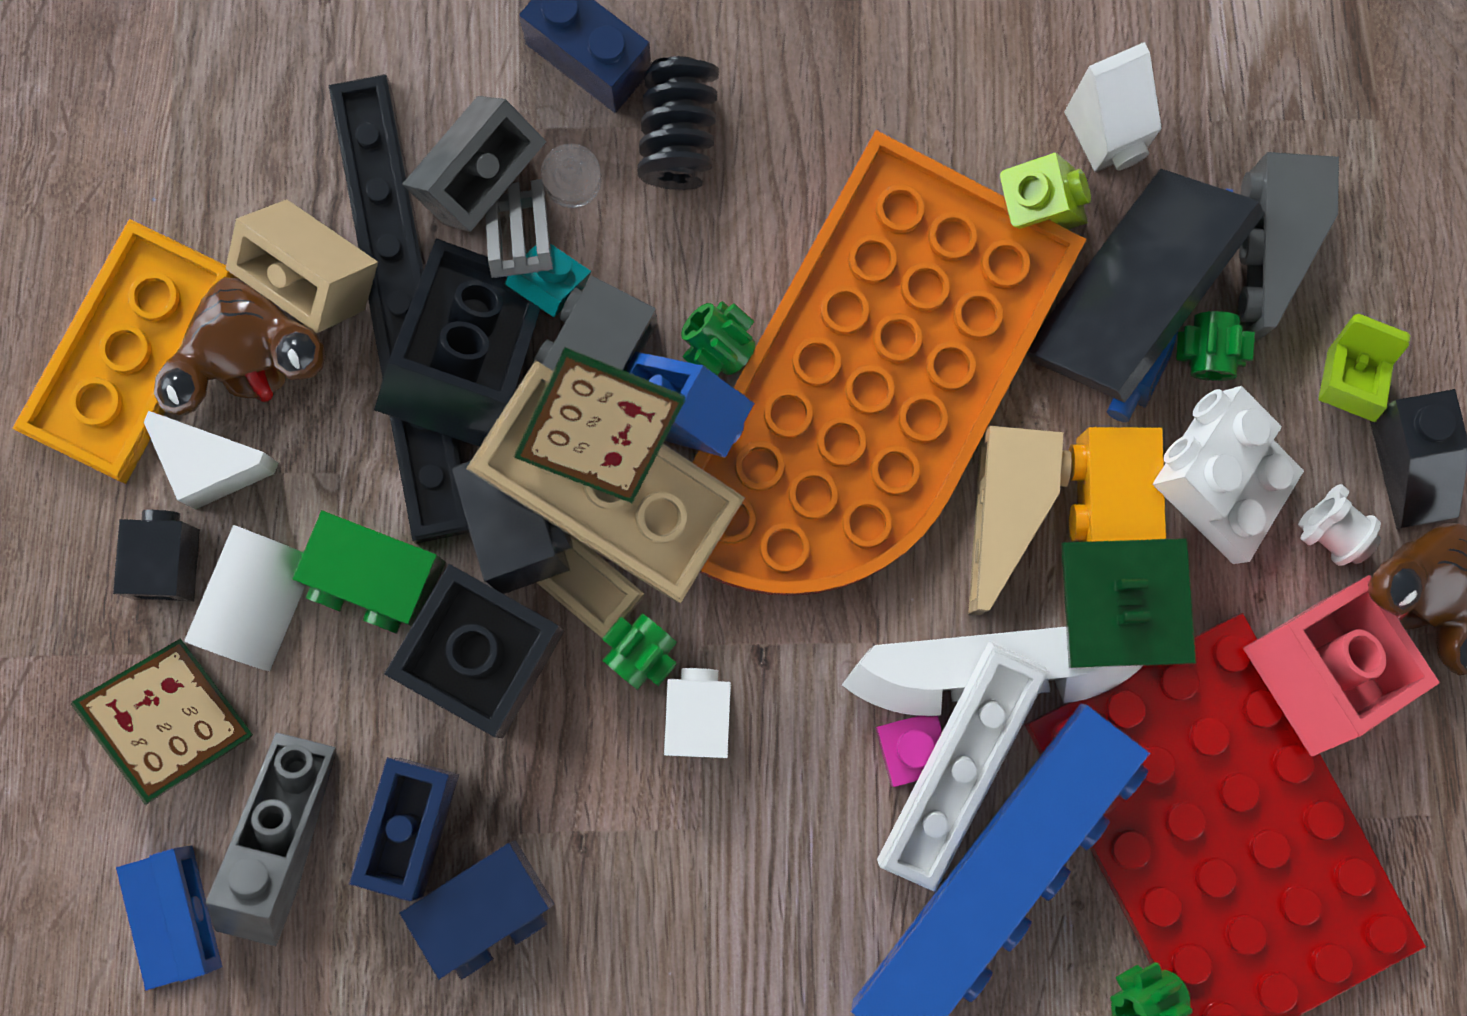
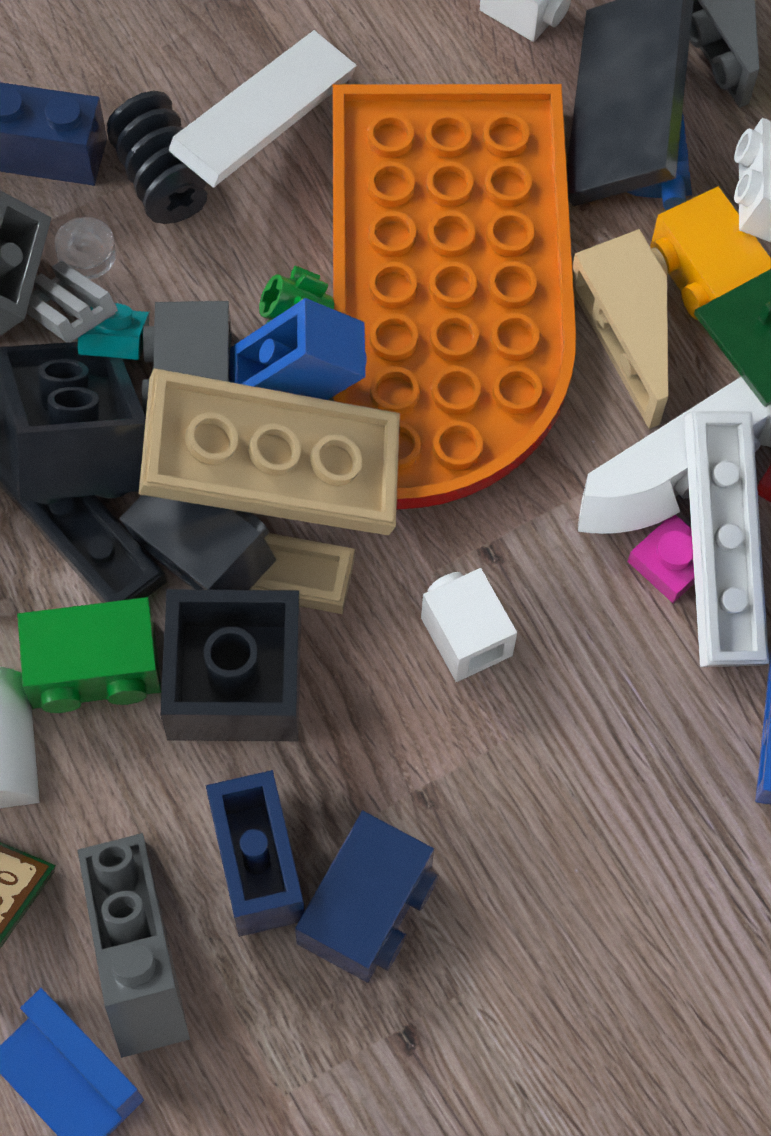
camera: 25 degrees left, 15 degrees down
(599, 425) = (242, 388): piece -> none
(639, 651) = (381, 593): green gear -> none
(795, 125) = (261, 108): none -> white tile
(1046, 191) = (502, 62): lime bracket -> none
(1215, 346) = (719, 112): green gear -> none

